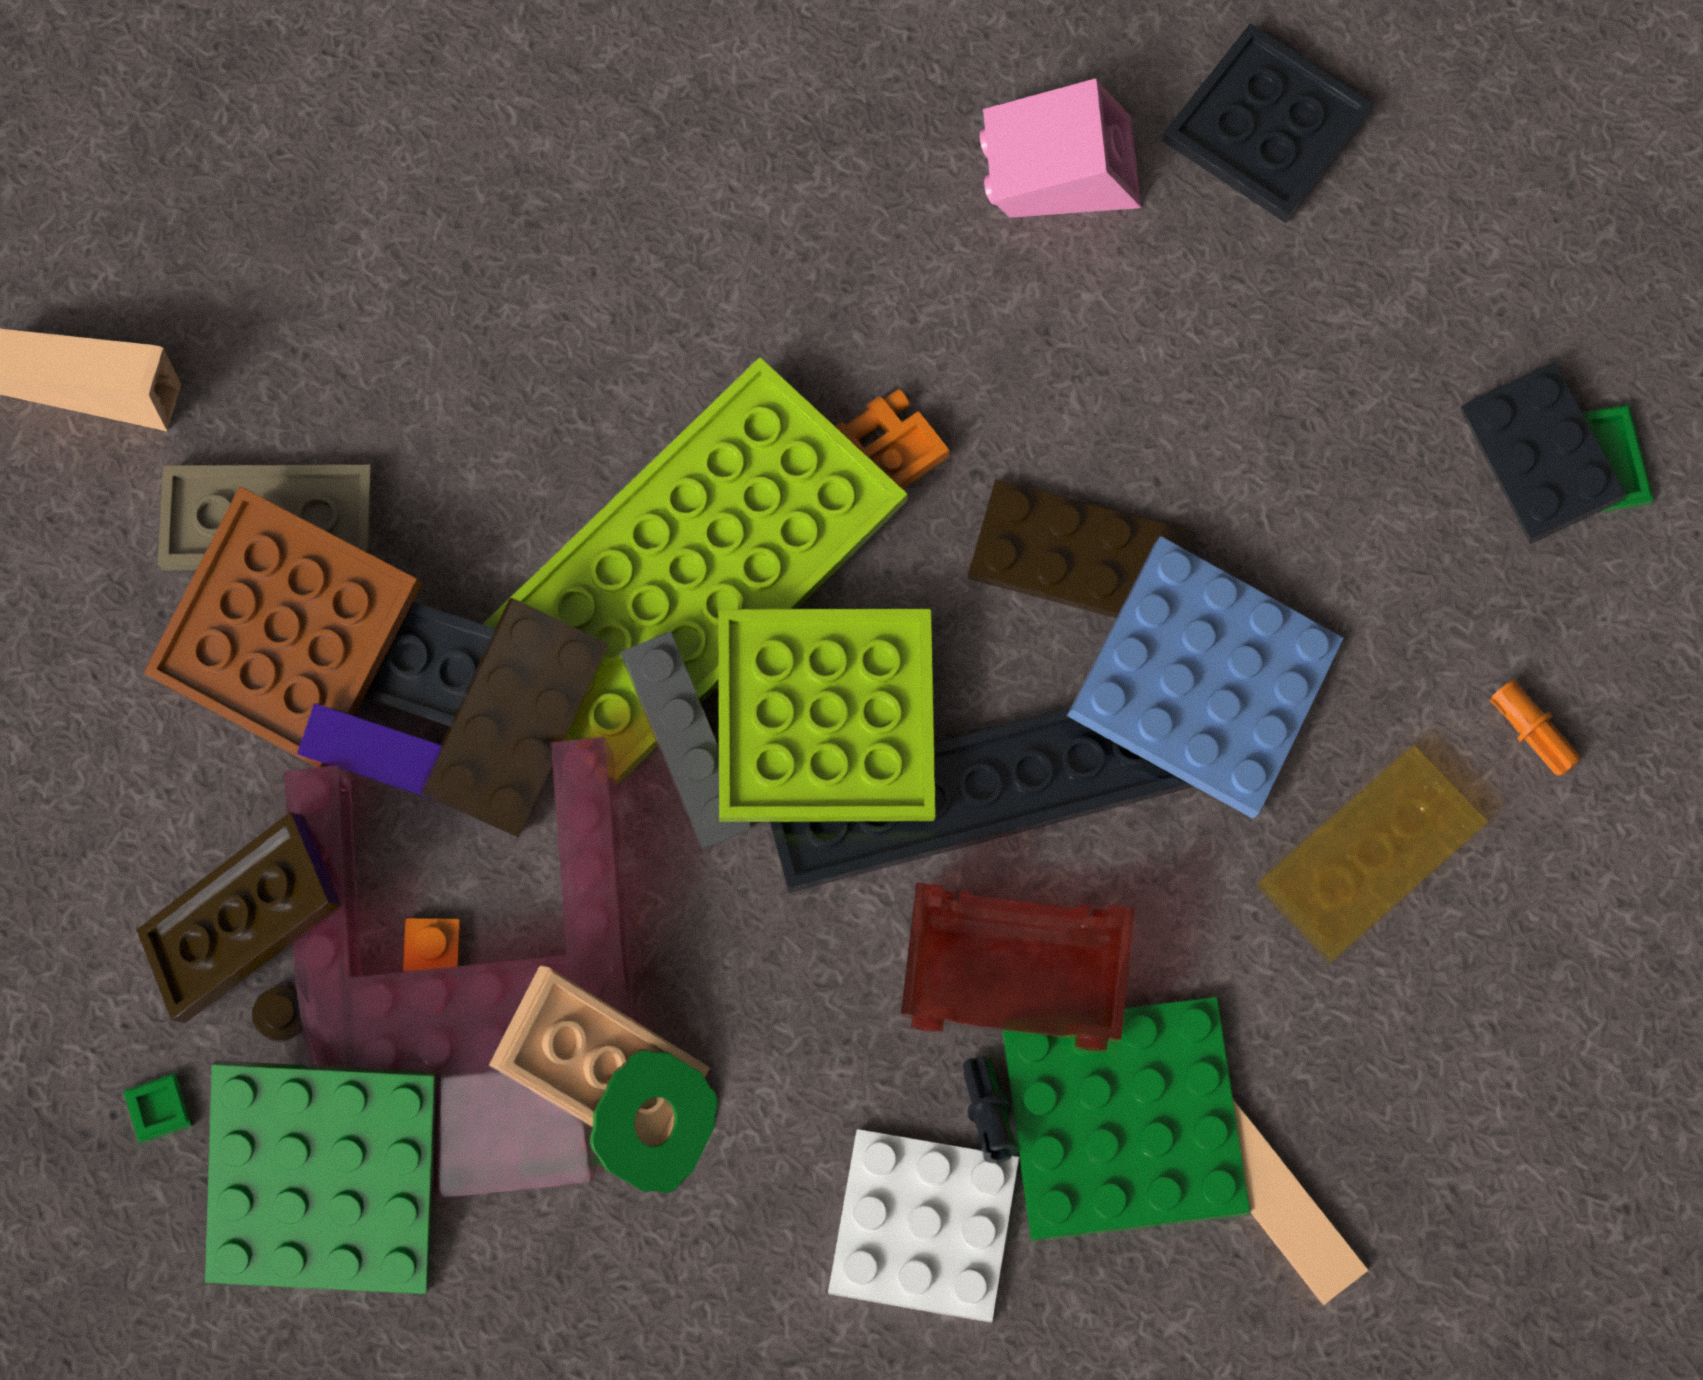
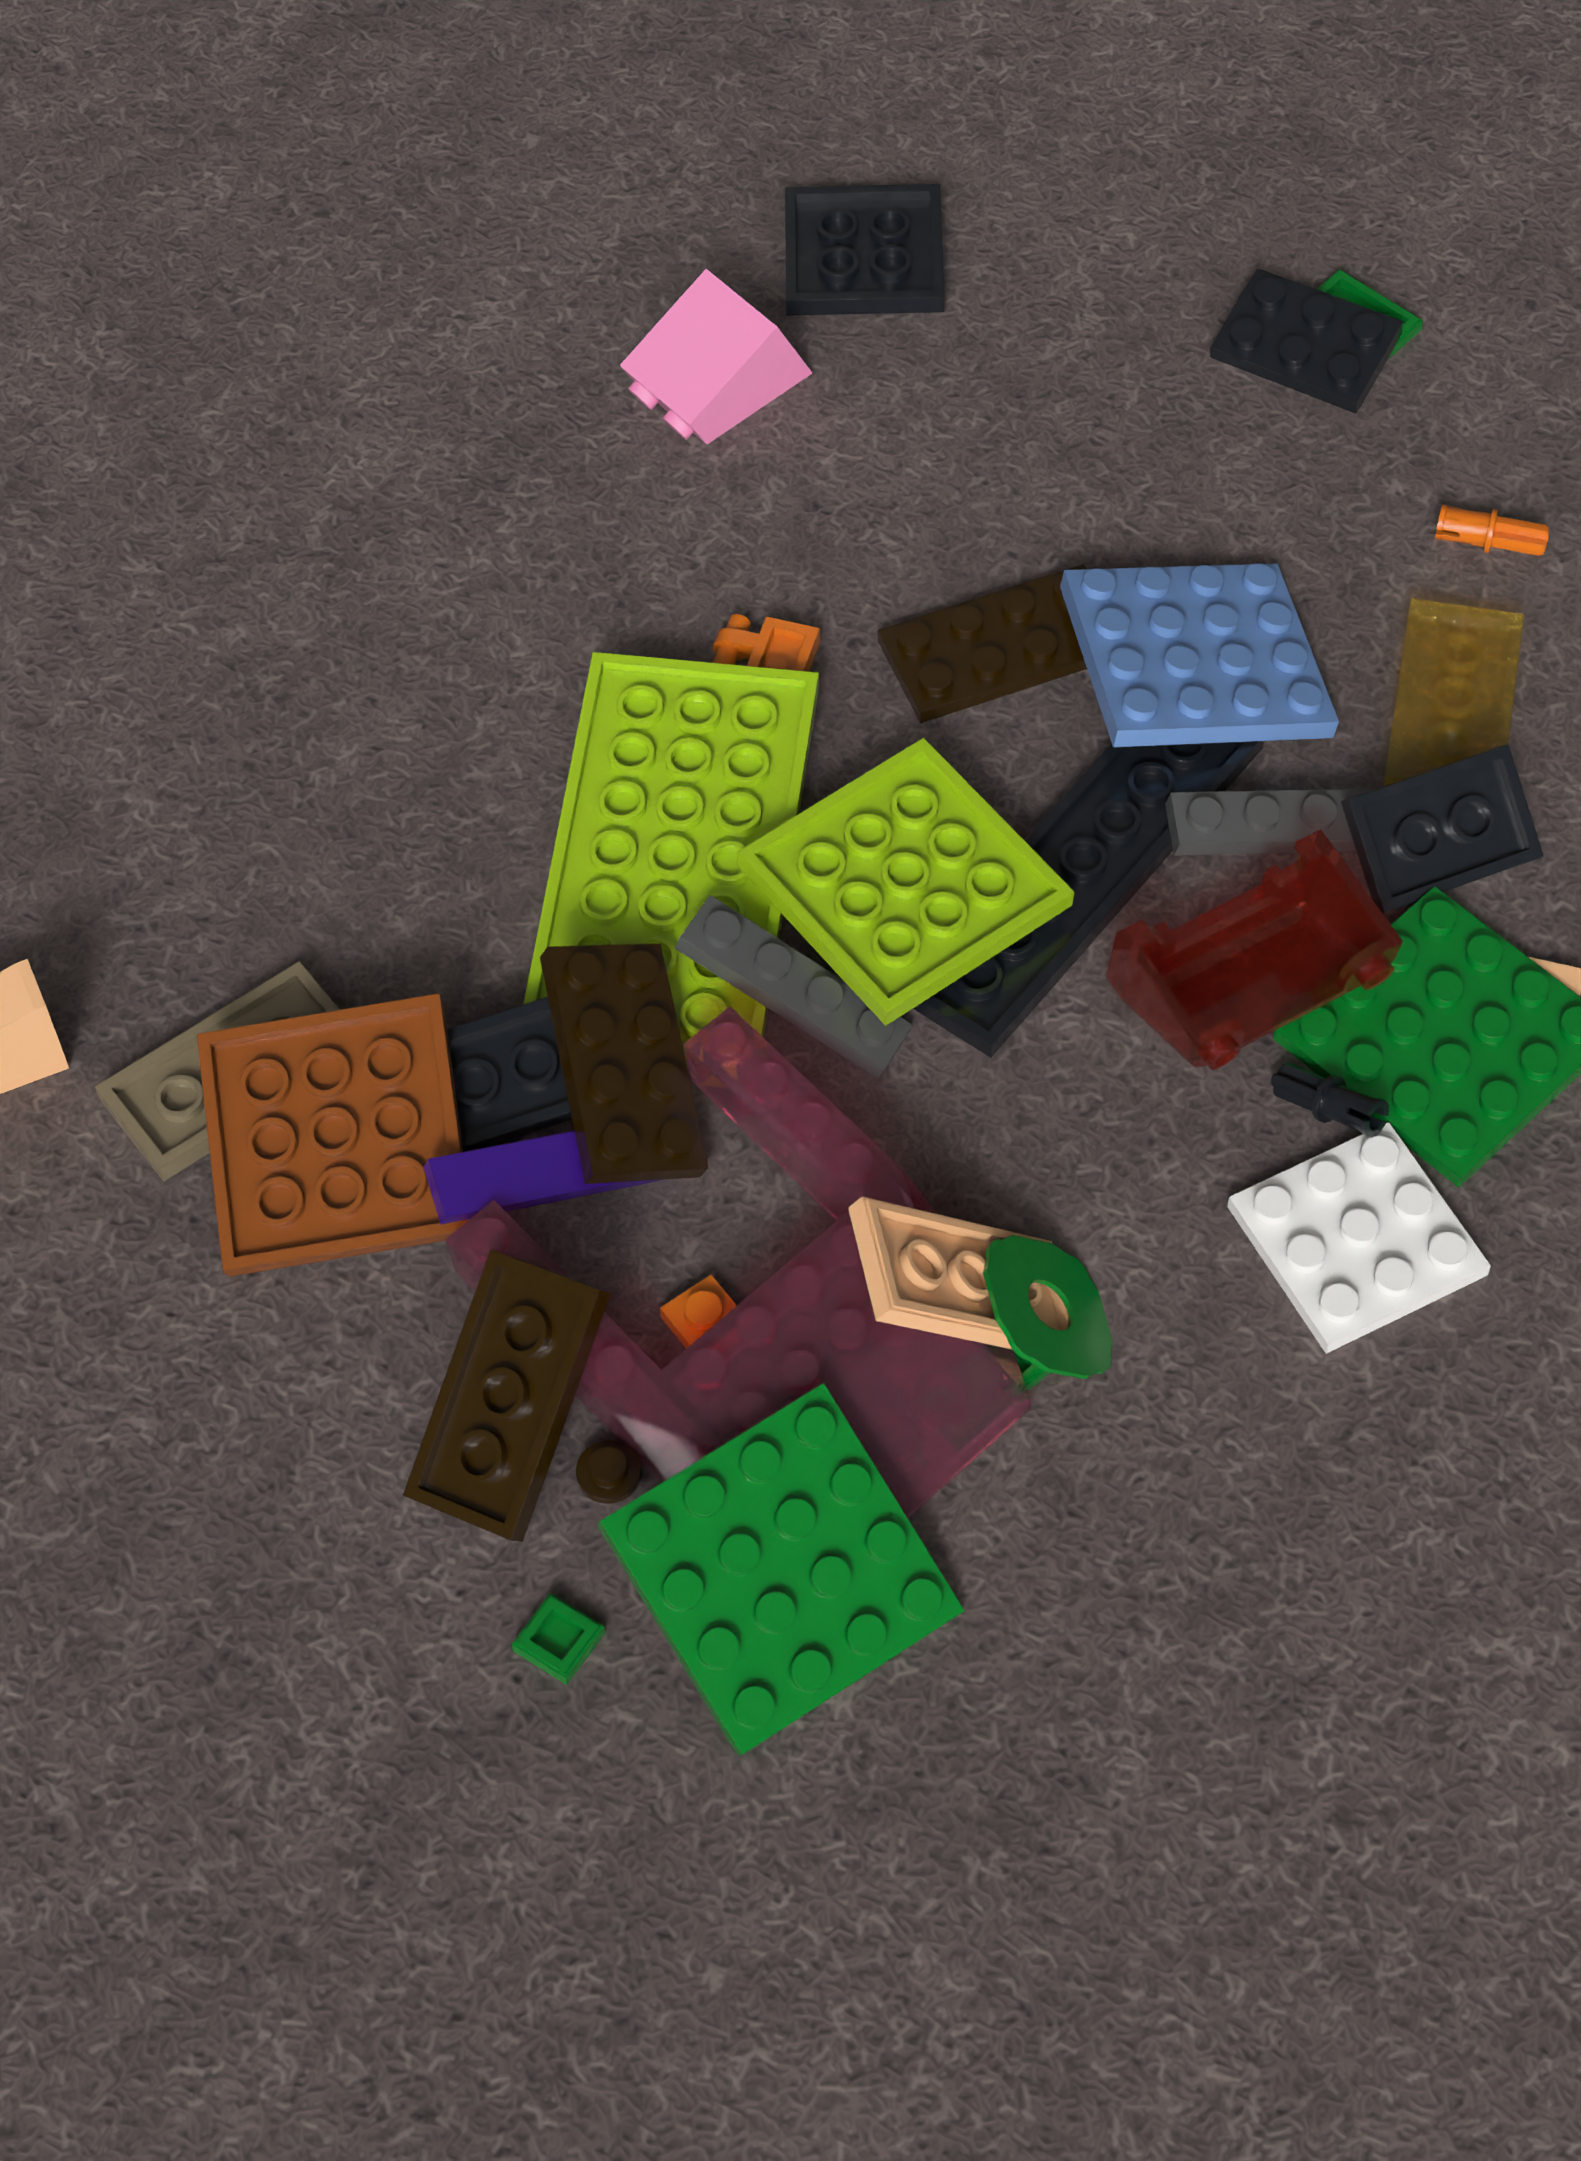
camera: 35 degrees left, 15 degrees down
(1153, 864) = (1256, 820): none -> dark grey plate
(1257, 958) = (1442, 828): none -> black plate

